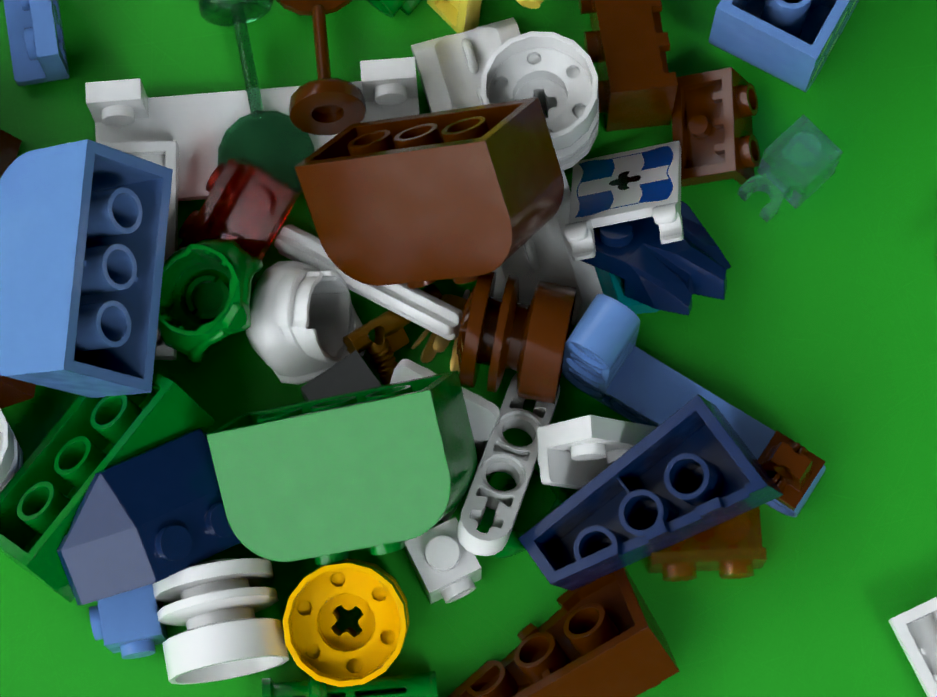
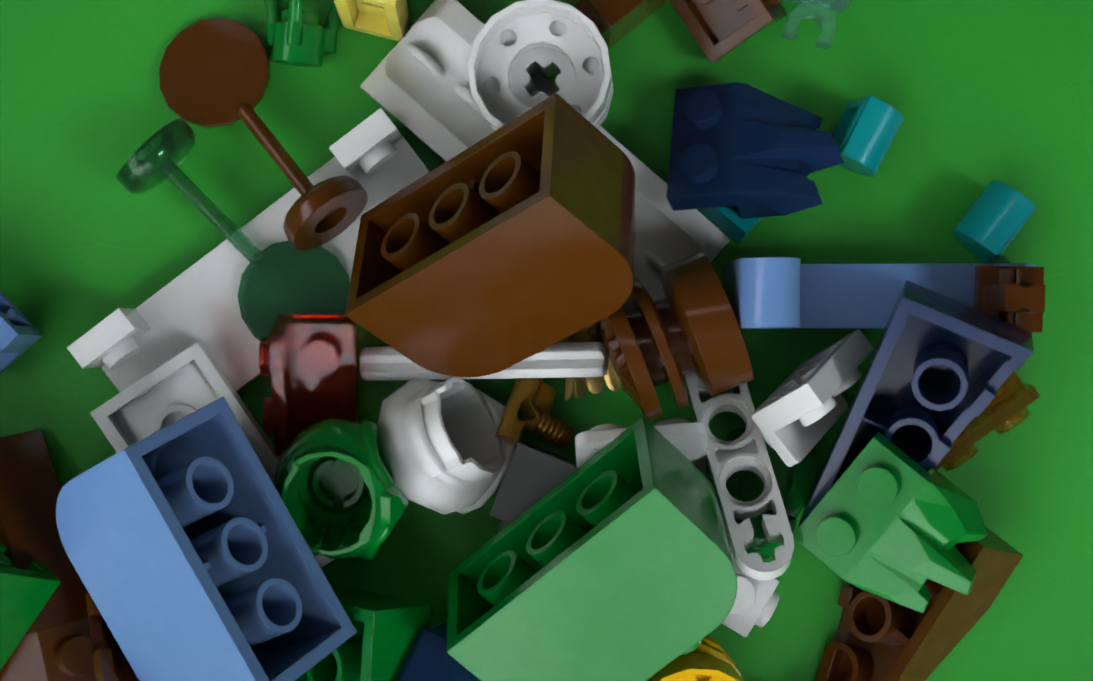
camera: 35 degrees left, 15 degrees up
(590, 569) = (894, 527): none -> green plate
(623, 190) = (677, 109): white flag -> none
(756, 299) = (866, 134): none -> teal brick
(814, 419) = (993, 221): none -> teal brick

